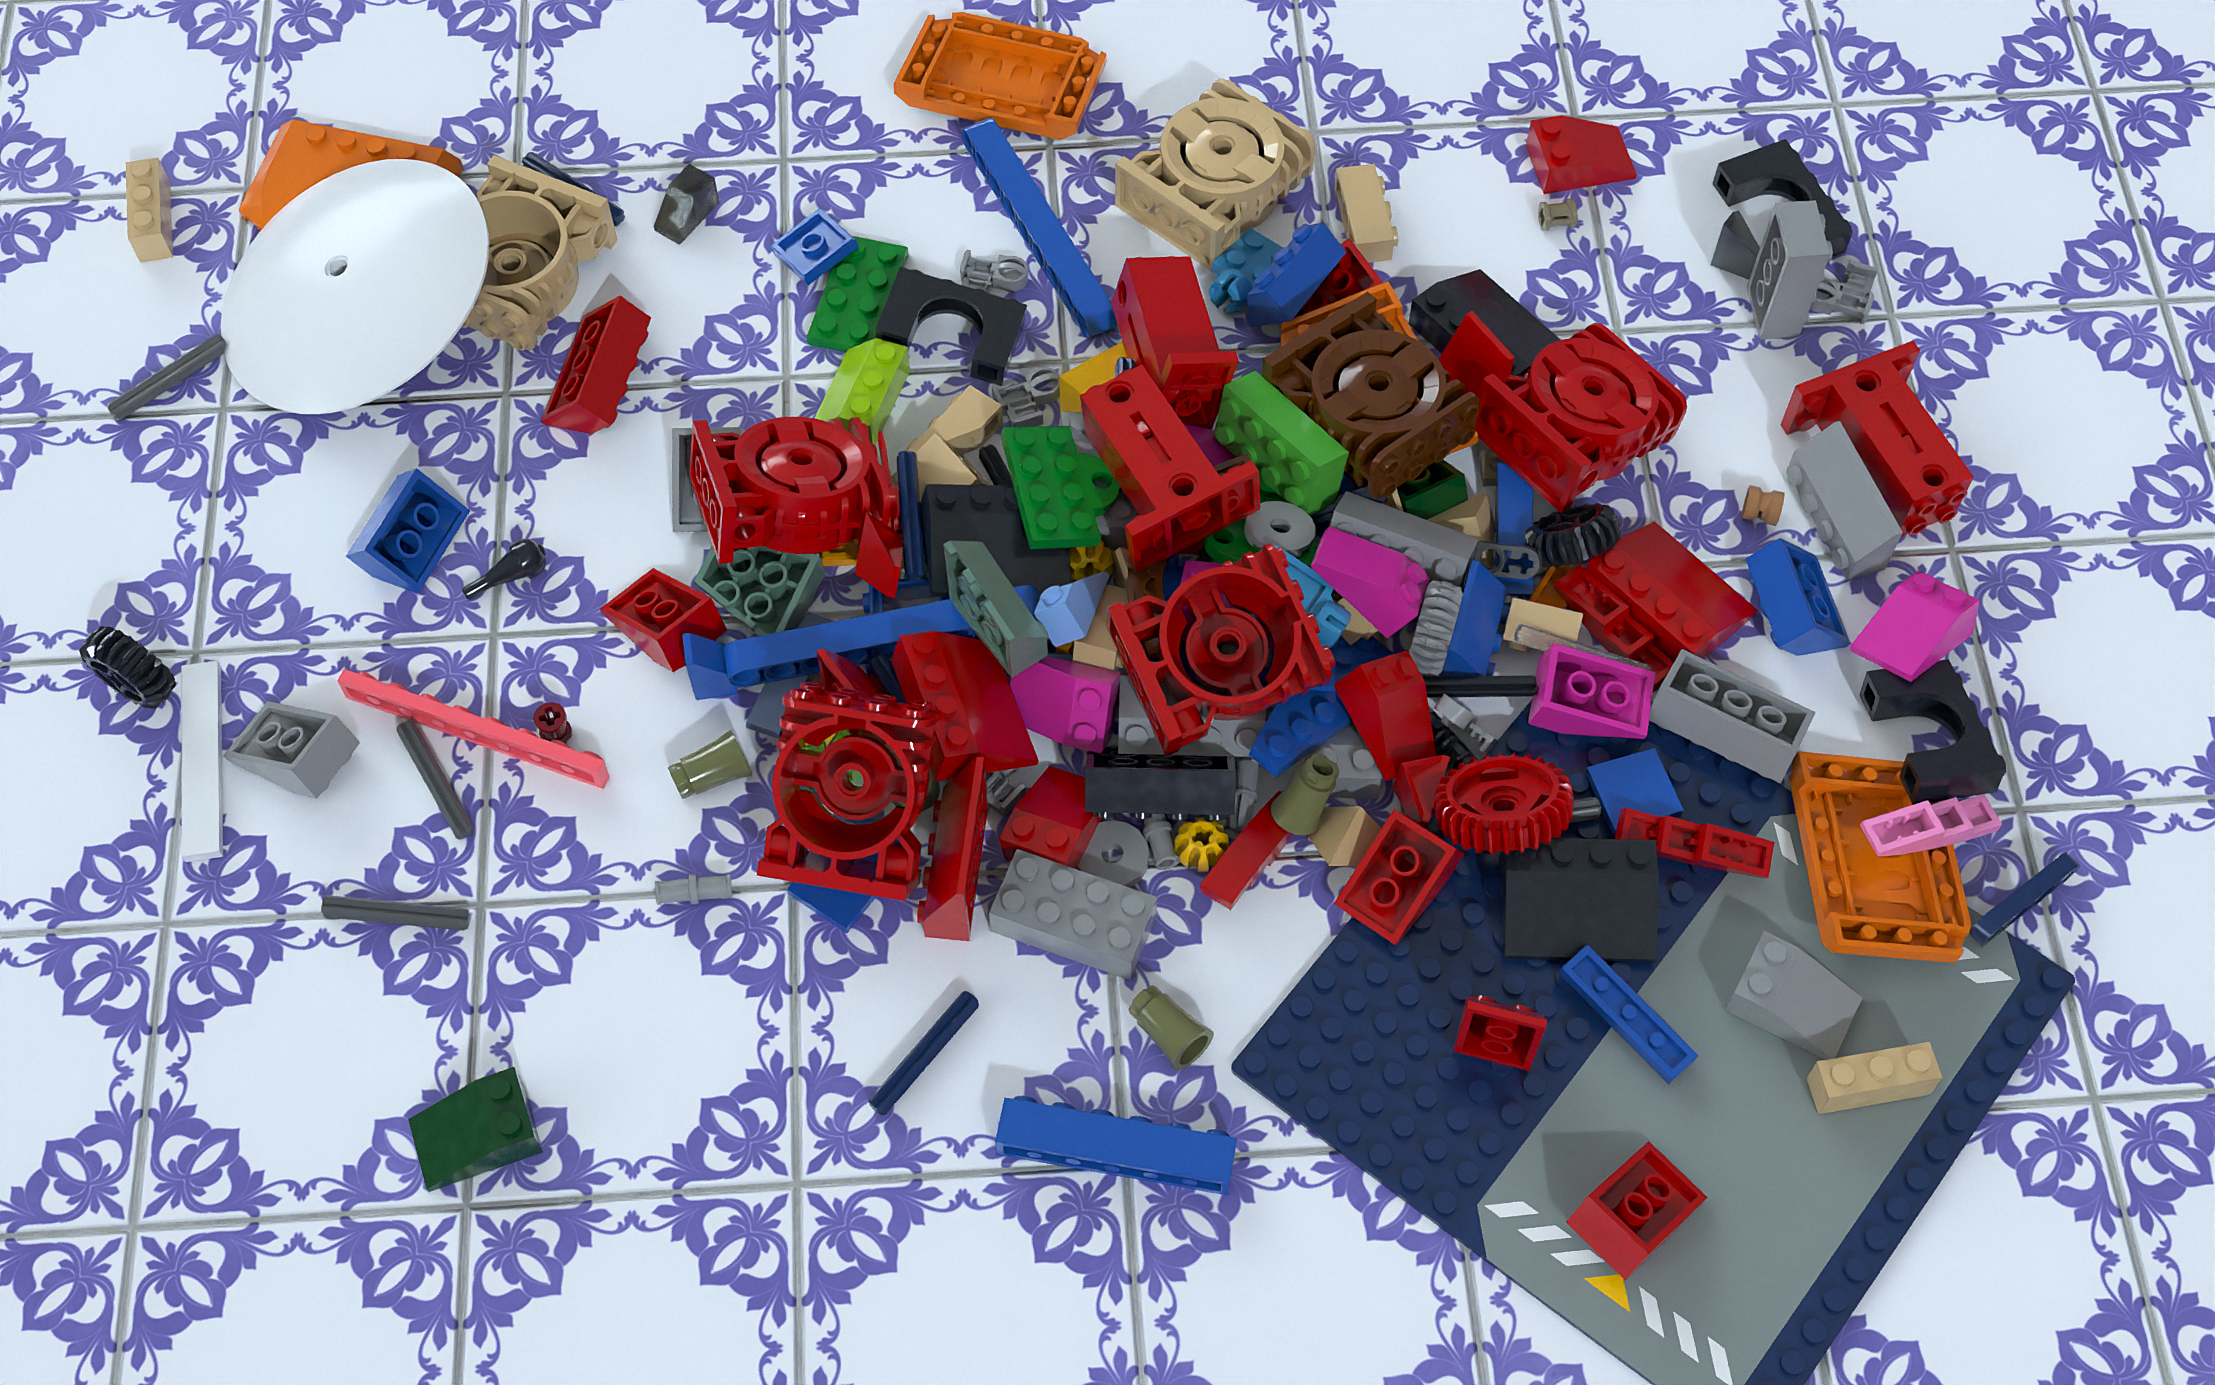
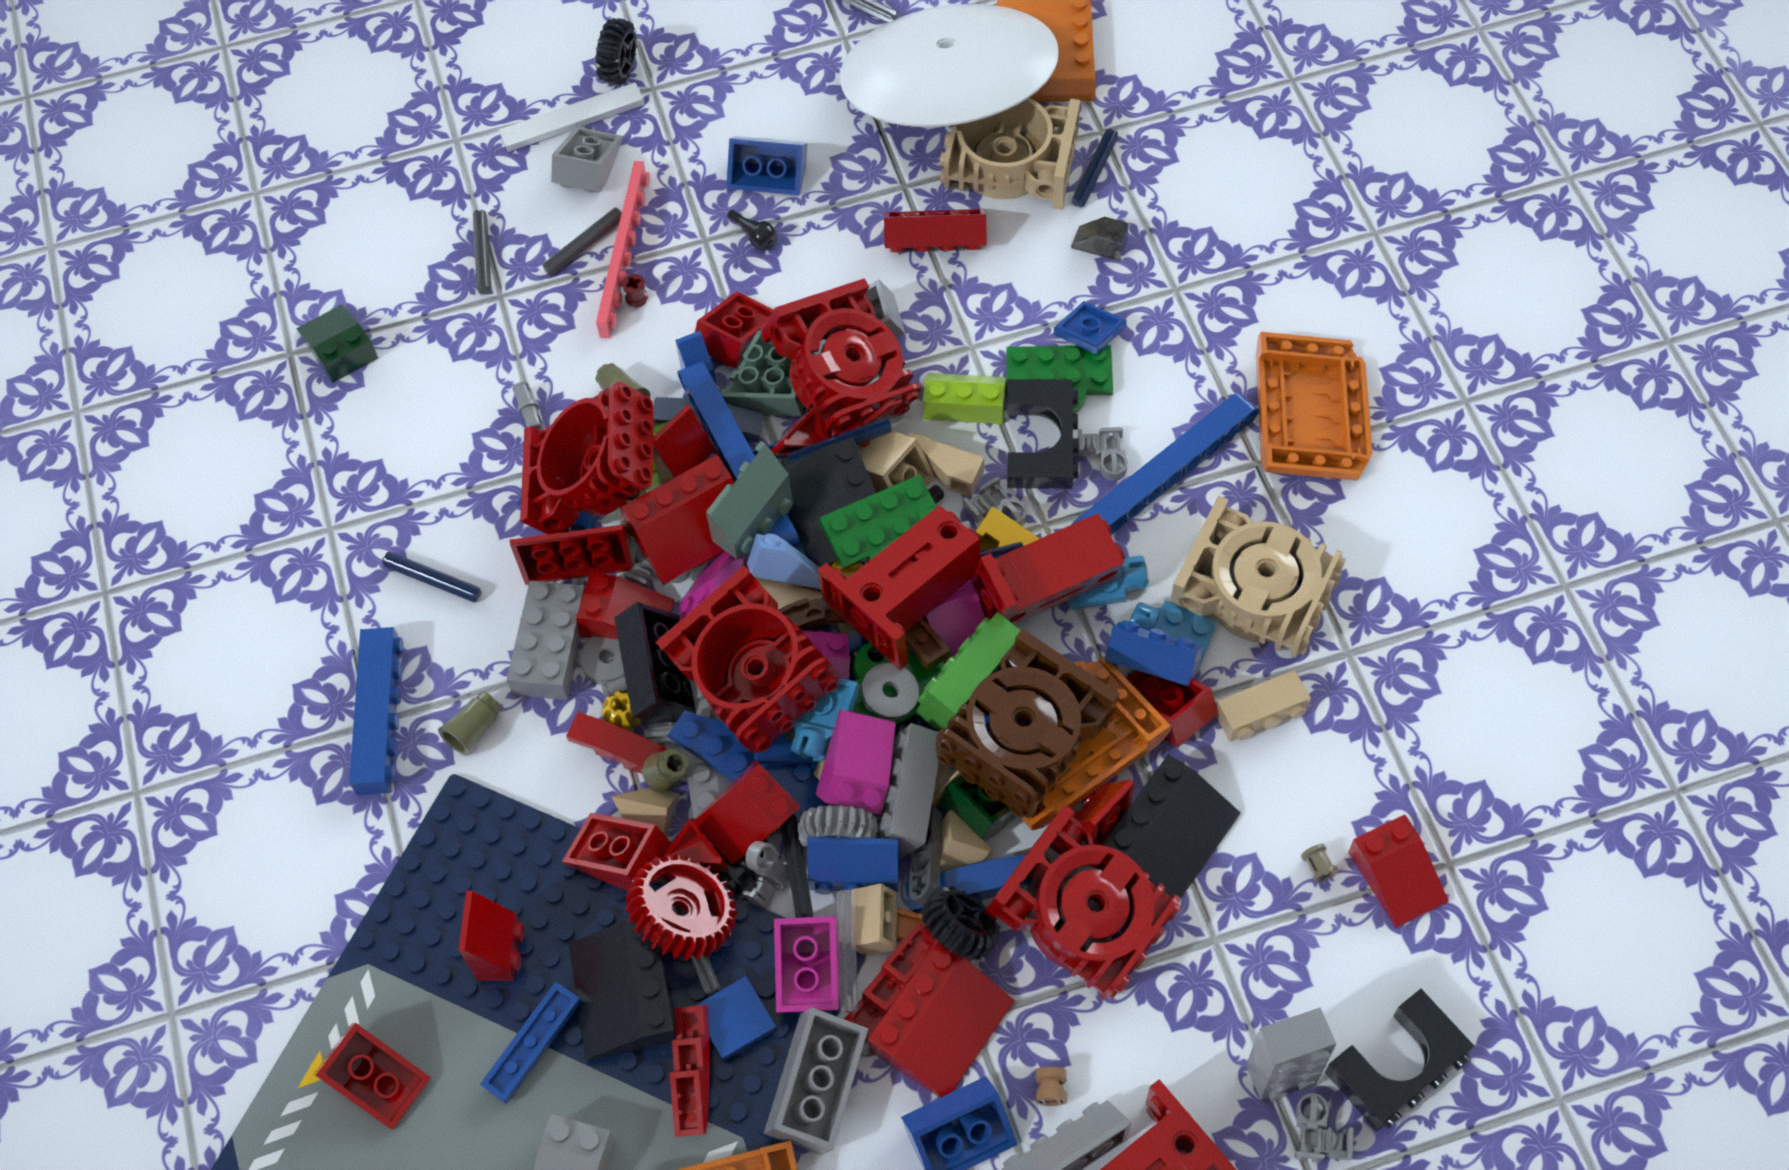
camera: 80 degrees right, 0 degrees up
(1736, 247) = (1342, 1015): dark grey slope -> none

